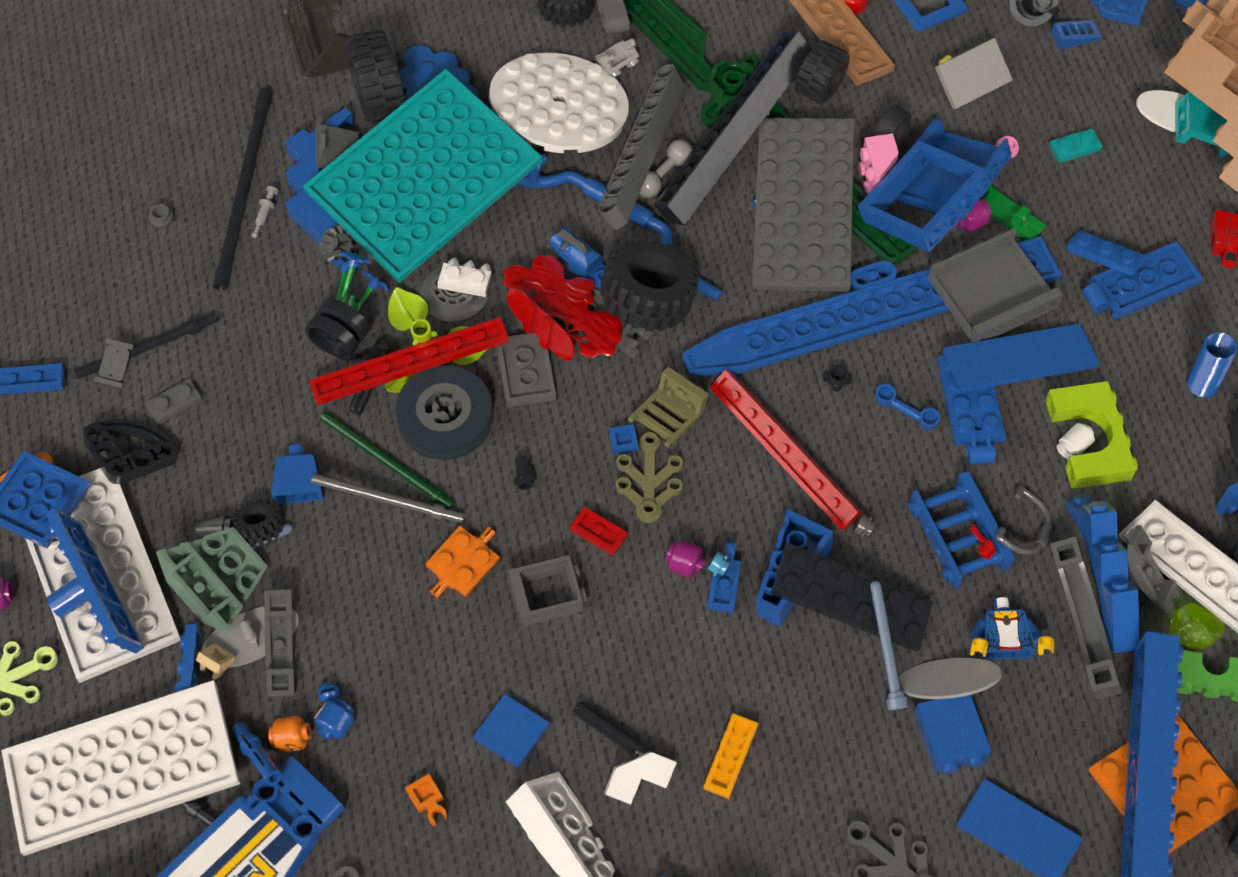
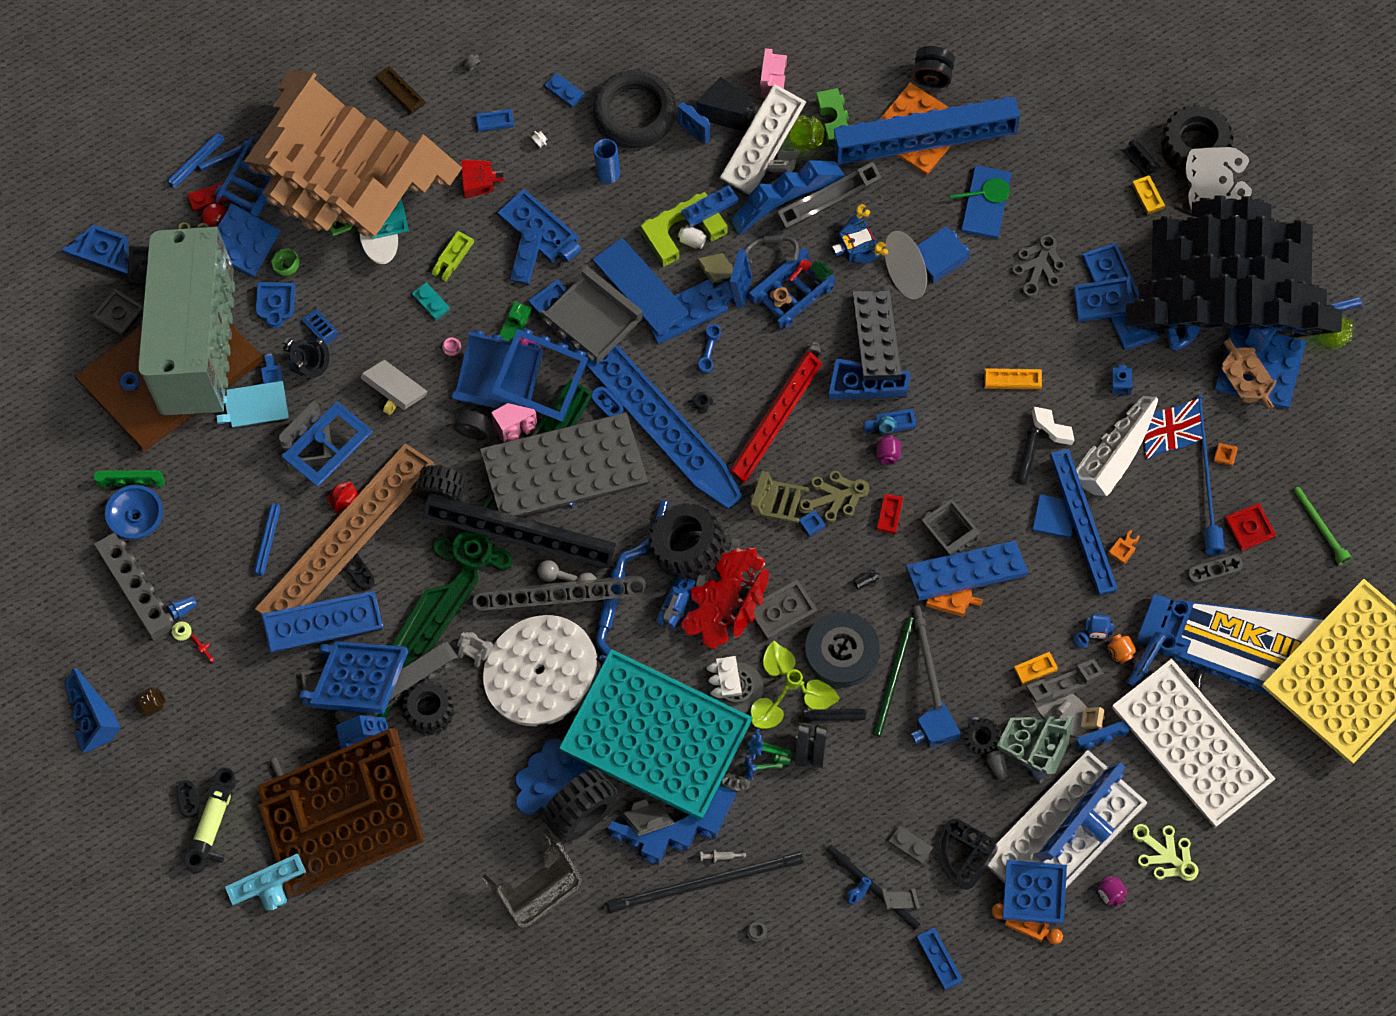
camera: 110 degrees left, 5 degrees up
(148, 325) = (858, 892): none -> blue arm
(316, 621) = (1035, 668): none -> light orange plate
(408, 361) = (817, 683): red plate -> none
(480, 588) = (966, 570): none -> blue plate
(484, 756) = (1083, 522): none -> blue plate
(896, 698) = (931, 293): sand blue piece -> none
(949, 498) = (780, 292): none -> medium nougat plate
(972, 567) = (821, 270): none -> dark green plate
(988, 459) = (741, 278): none -> blue tile
(1020, 453) = (716, 267): none -> olive piece
(1032, 847) = (994, 191): none -> green piece
(1111, 465) = (709, 206): none -> blue plate
(1131, 182) = (453, 255): none -> lime hinge
(1166, 16) = (288, 257): none -> bright green hair

